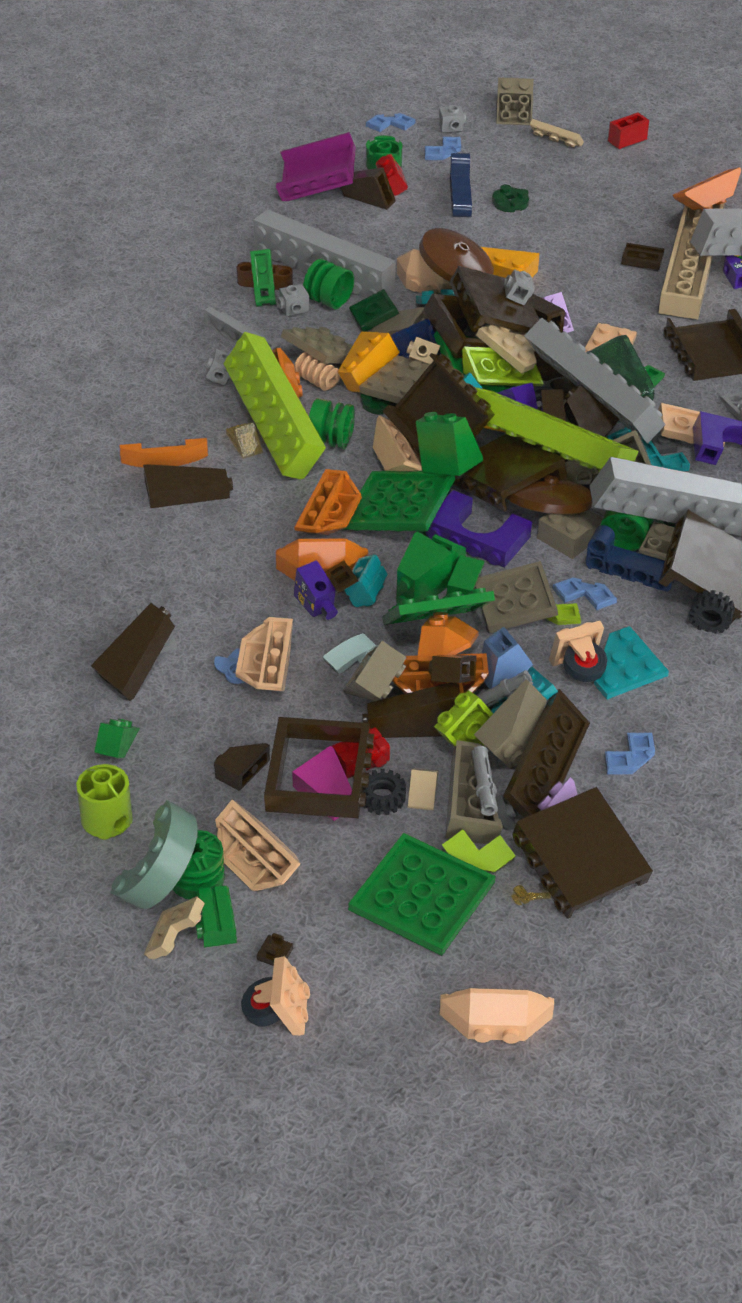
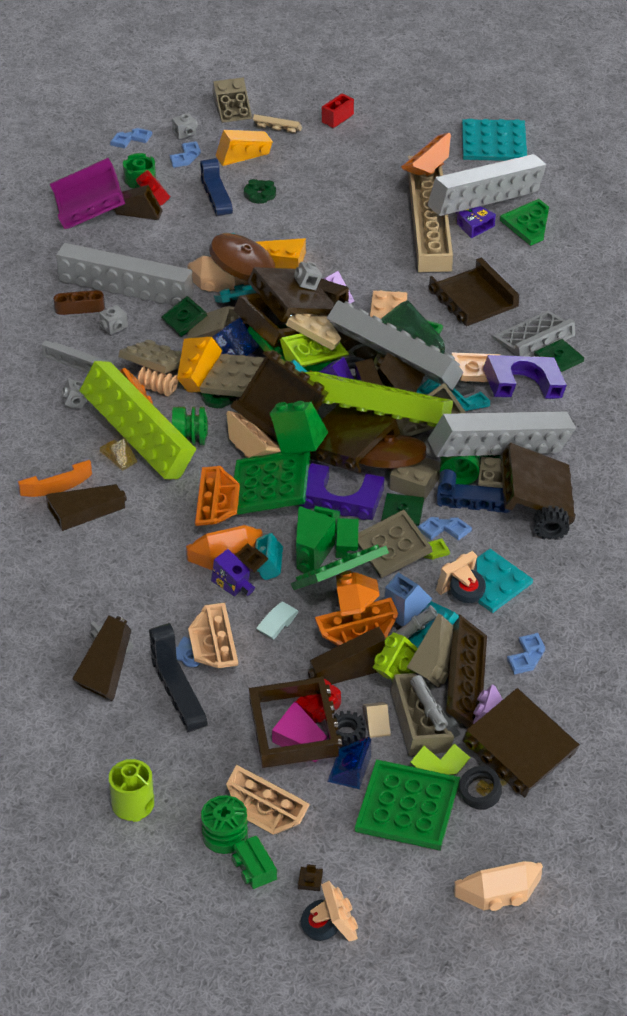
camera: 15 degrees left, 0 degrees up
(115, 737) = (116, 735): green slope -> none
(164, 862) = (206, 828): sand green brick -> none
(170, 923) = (221, 877): tan plate -> none
(206, 689) = (176, 684): none -> black beam
(241, 764) = (225, 733): dark brown slope -> none
(263, 277) = (81, 304): green plate -> none
(329, 283) = (139, 299): green wheel -> none
(374, 832) = (351, 764): none -> clear blue slope
(376, 672) = (309, 633): dark tan slope -> none
(421, 350) = (243, 346): tan brick -> none
(453, 668) = (372, 616): dark brown slope -> none
(507, 148) = (242, 145): none -> light orange wedge
(515, 876) = (473, 774): none -> black tyre
(553, 560) = (411, 504): none -> dark green plate
(642, 256) = (388, 223): dark brown plate -> none

